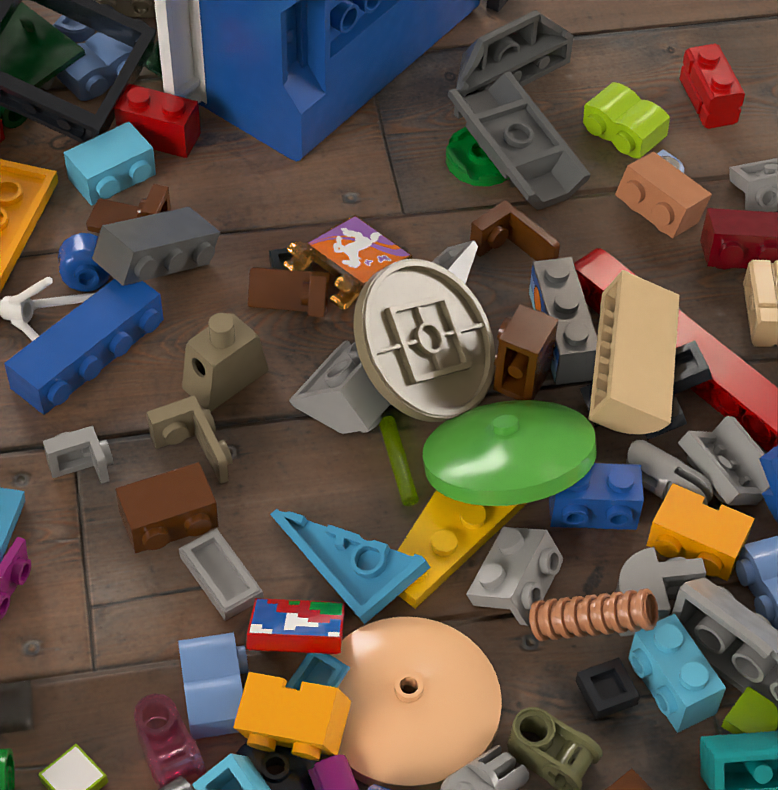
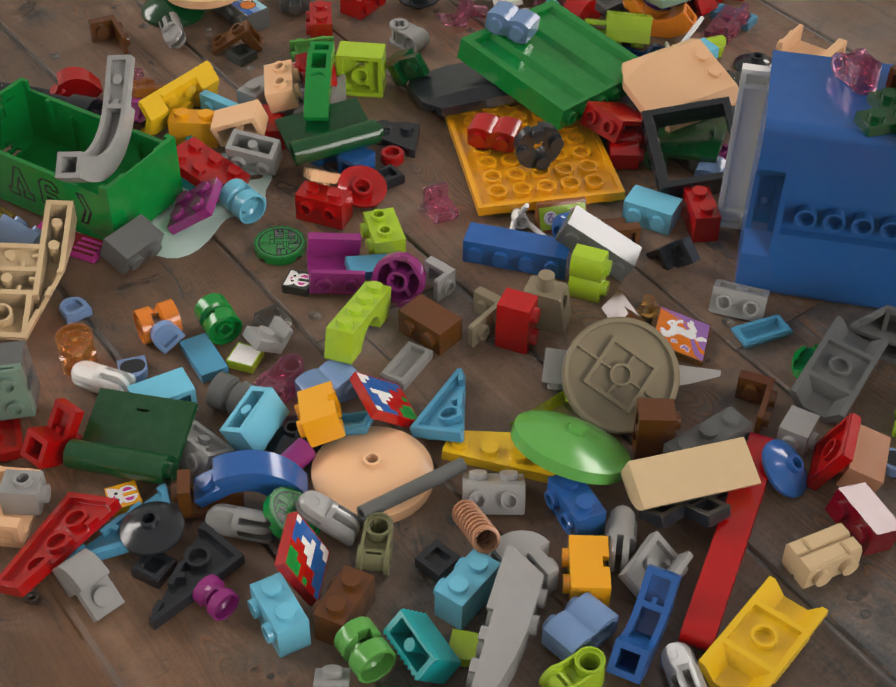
camera: 65 degrees right, 10 degrees down
(43, 258) = (548, 210): none -> slope
(56, 501) = (403, 274): none -> magenta cylinder
(60, 722) = (271, 338): none -> light grey bracket
(156, 606) = (348, 328): none -> lime arch
(204, 283) = (588, 273): none -> lime brick
(212, 180) = (676, 253): none -> black slope
(244, 401) = (517, 321): none -> red brick
(333, 165) = (738, 300): none -> light grey bracket
(394, 175) = (761, 331): none -> dark azure tile
(482, 664) = (412, 488): none -> dark grey piece
(582, 226) = (799, 429): none -> light grey brick
(639, 262) = (784, 468): none -> blue dish
(646, 209) = (834, 451): none -> red tile

